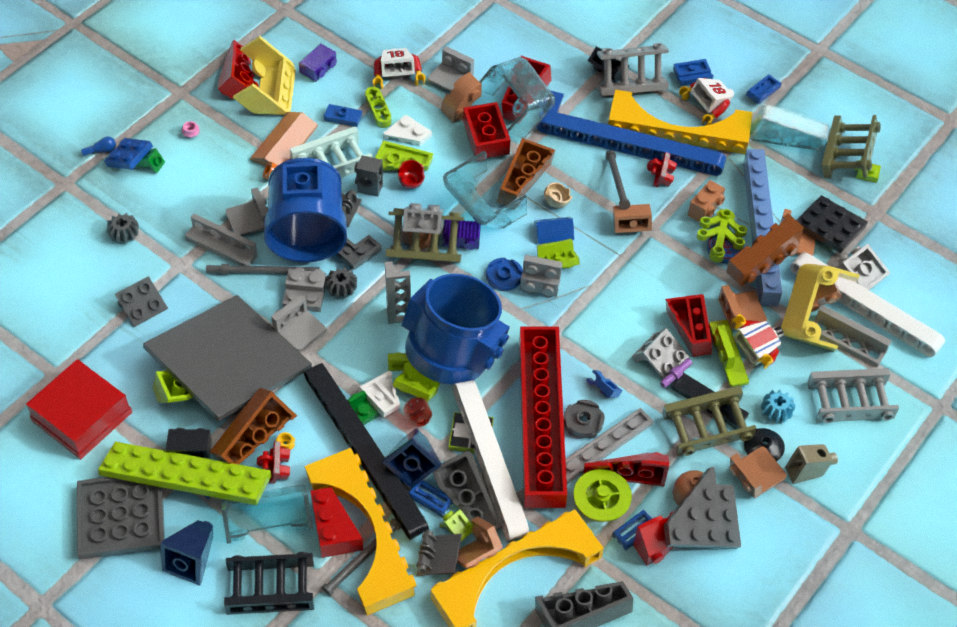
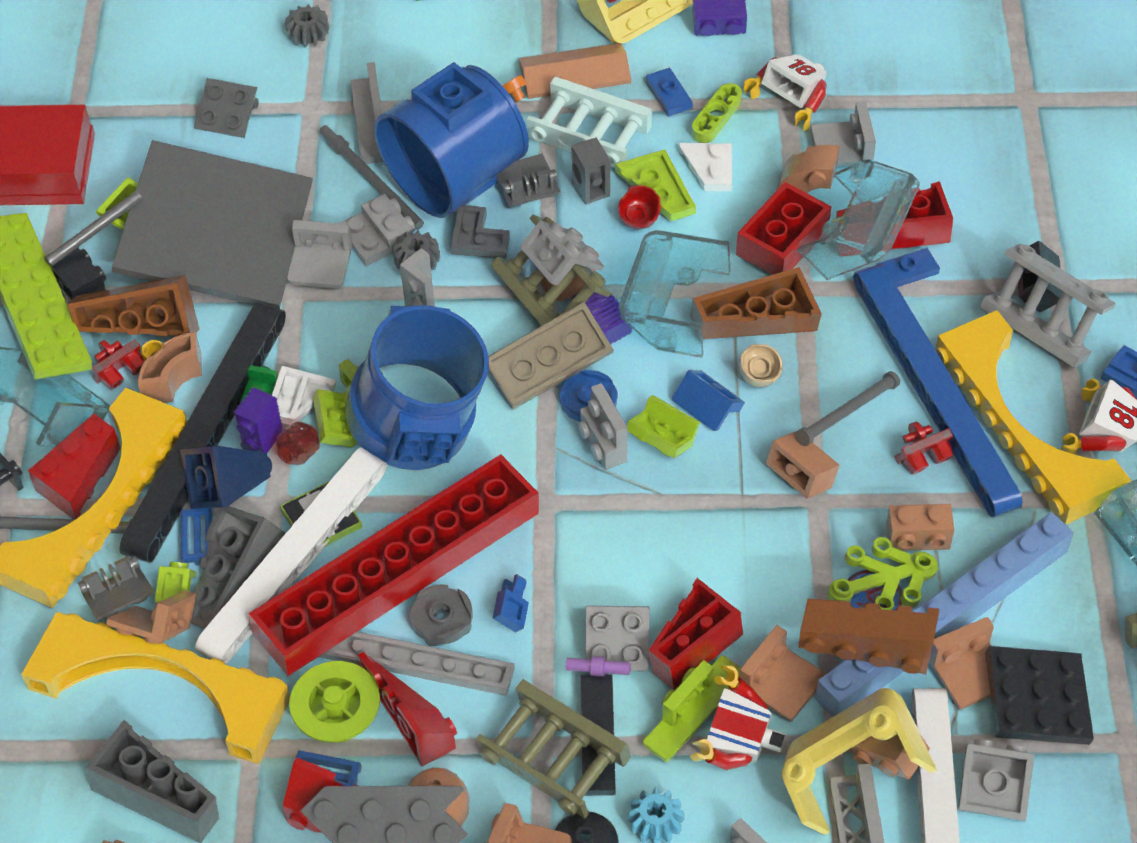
camera: 55 degrees right, 0 degrees up
(178, 409) = (94, 228): none -> dark grey bar
(308, 434) = (171, 367): none -> nougat brick
(391, 419) = (258, 421): none -> dark purple brick
(473, 256) = (549, 355): none -> dark tan tile

